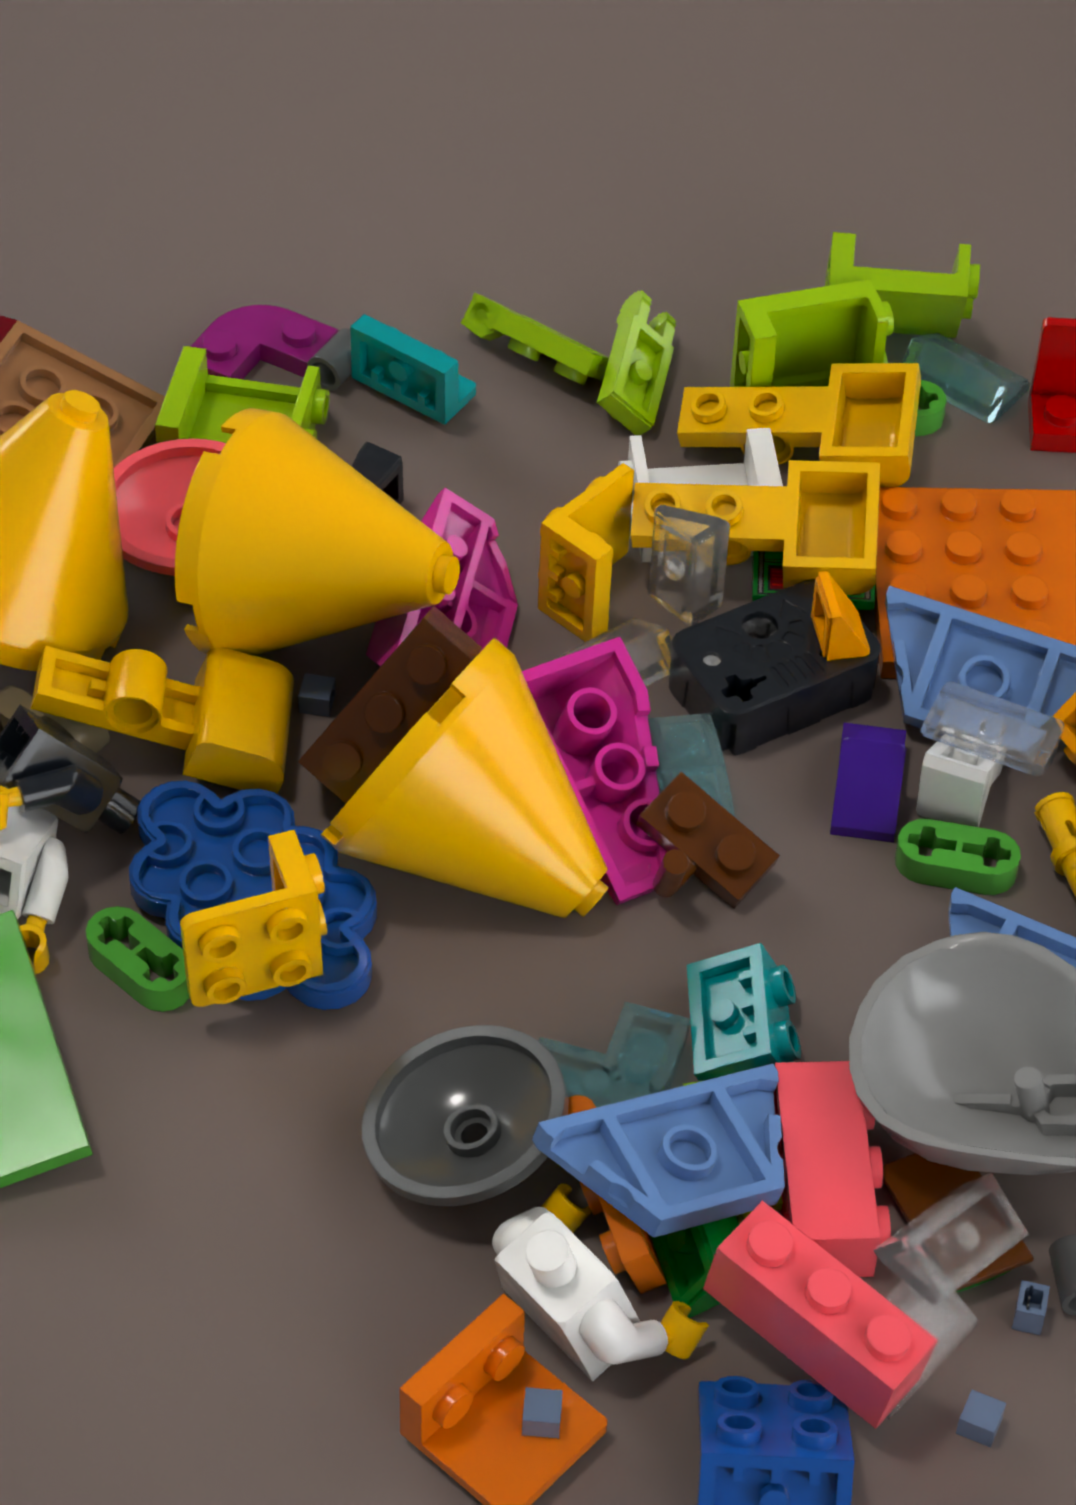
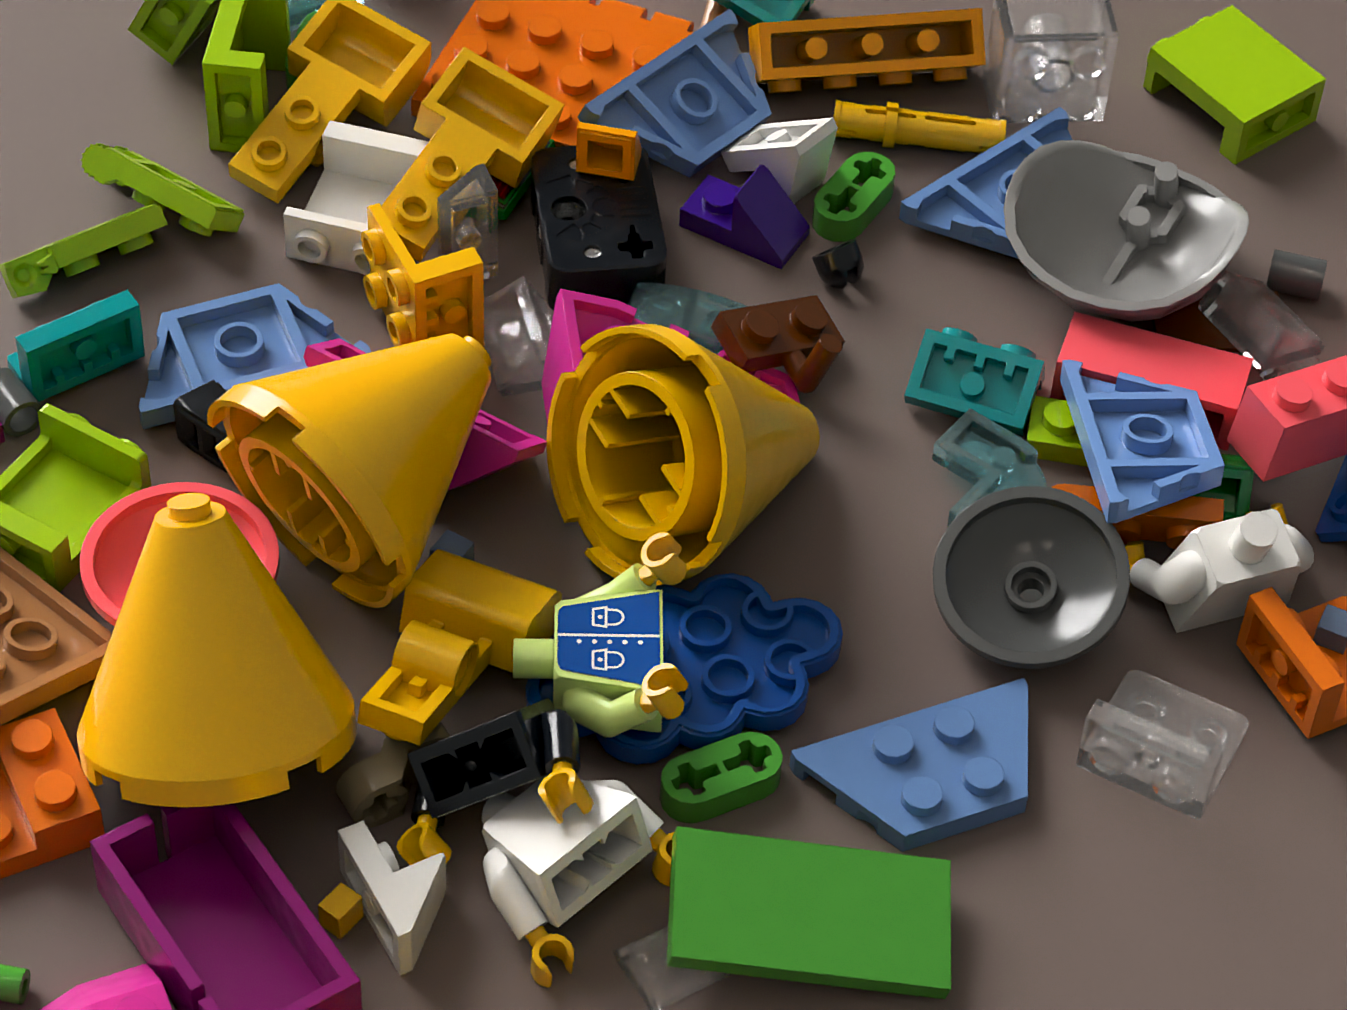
camera: 70 degrees left, 0 degrees up
(202, 811) = (611, 649): none -> torso
(225, 1120) = (930, 768): none -> medium blue wing
(260, 938) = (788, 615): yellow bracket -> none
(322, 1294) = (1161, 742): none -> clear bracket
(390, 704) = (566, 467): reddish brown brick -> none
(483, 466) = (230, 342): none -> medium blue wing
(846, 867) = (840, 264): none -> black hinge
(993, 728) = (761, 110): clear slope -> none
(1030, 1307) = (1315, 312): sand blue piece -> none

